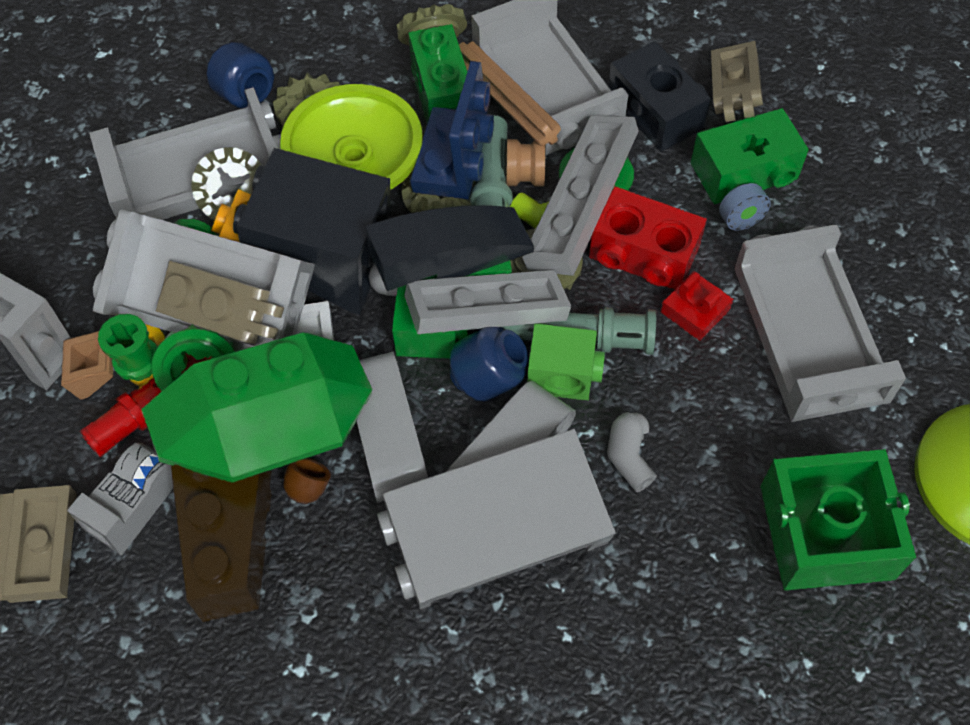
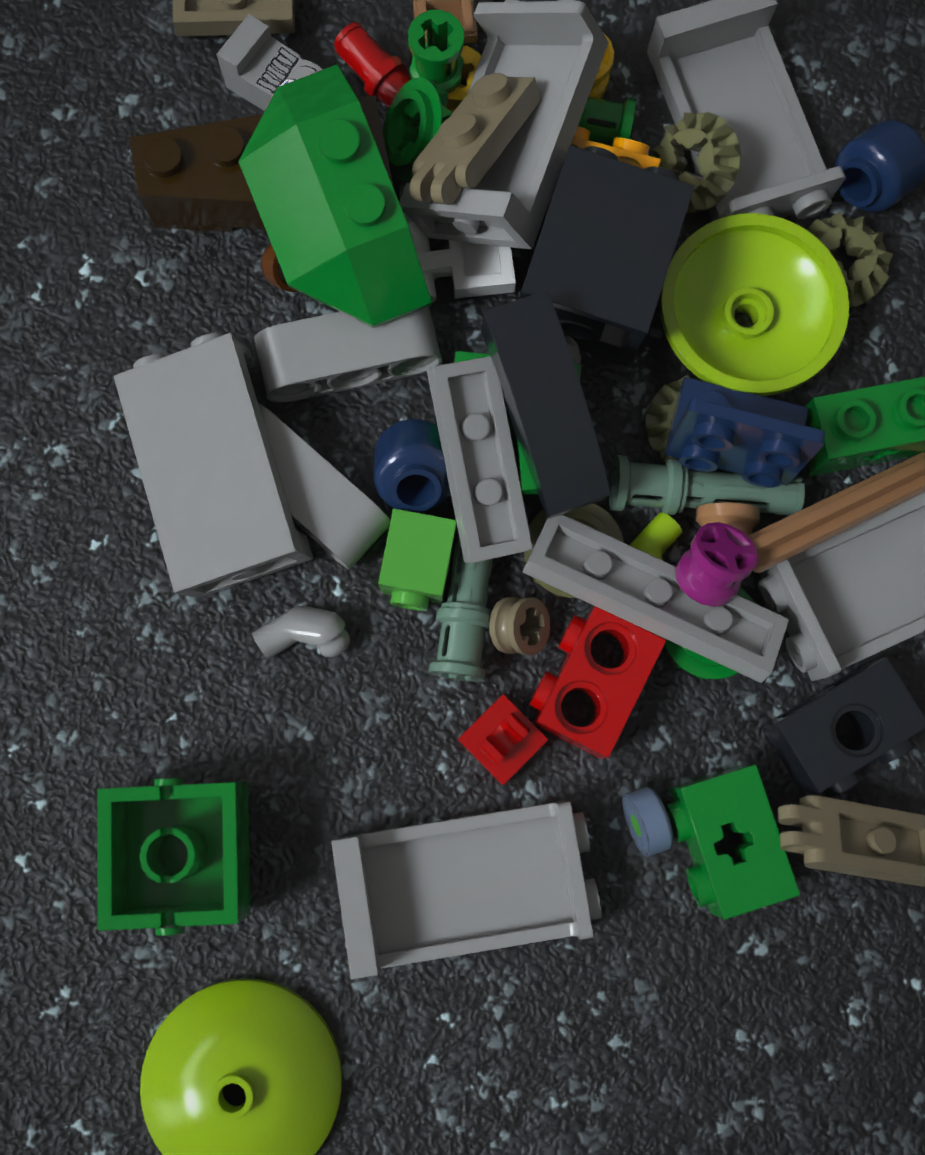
camera: 85 degrees right, 20 degrees up
(559, 149) = (716, 564): none -> magenta wheel
(609, 290) = (519, 625): none -> dark tan bush

